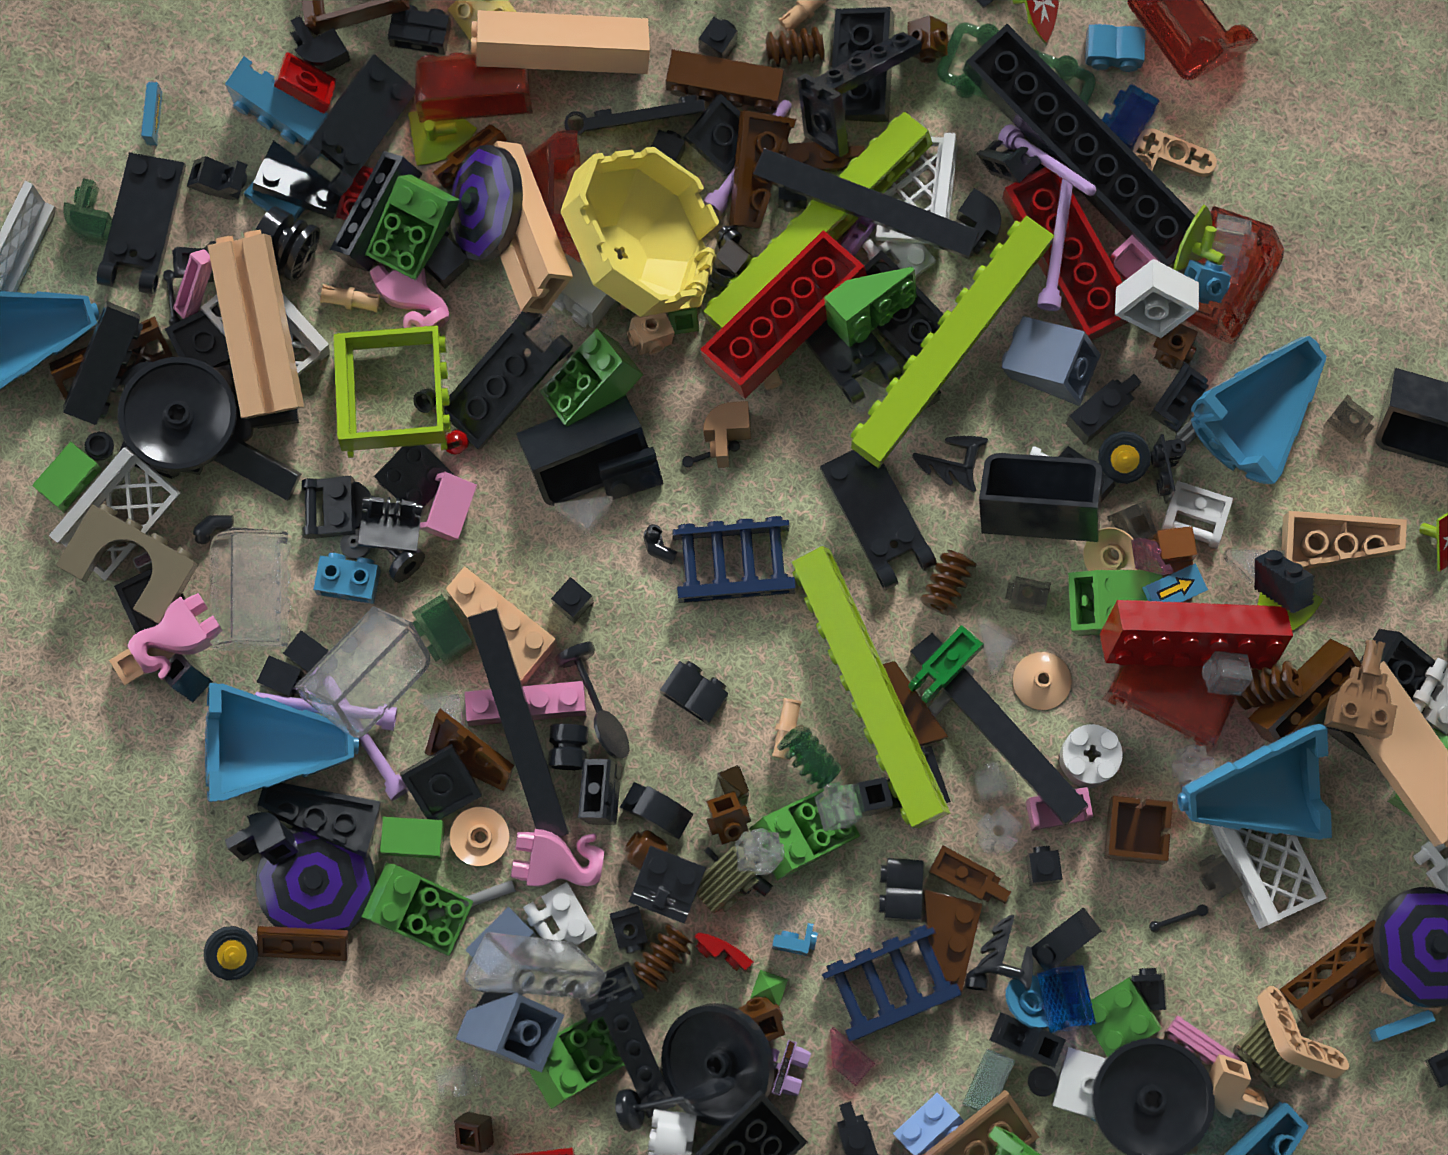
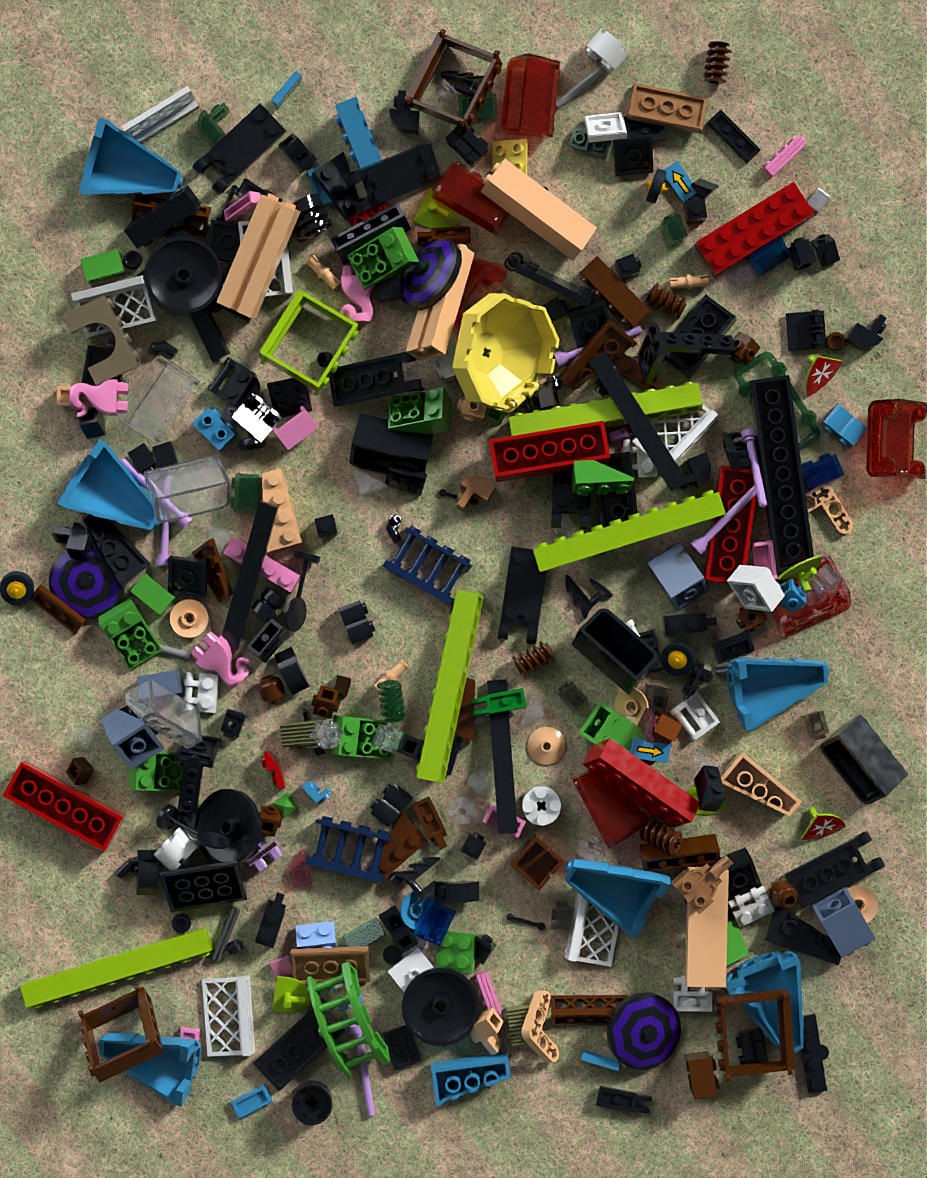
camera: 30 degrees right, 10 degrees up
(305, 82) = (381, 133): red tile -> none
(453, 436) = (326, 391): red hinge -> none
(662, 957) = (238, 751): reddish brown piece -> none
(667, 884) = (268, 715): black hinge -> none
(1227, 673) = (642, 815): clear brick -> none

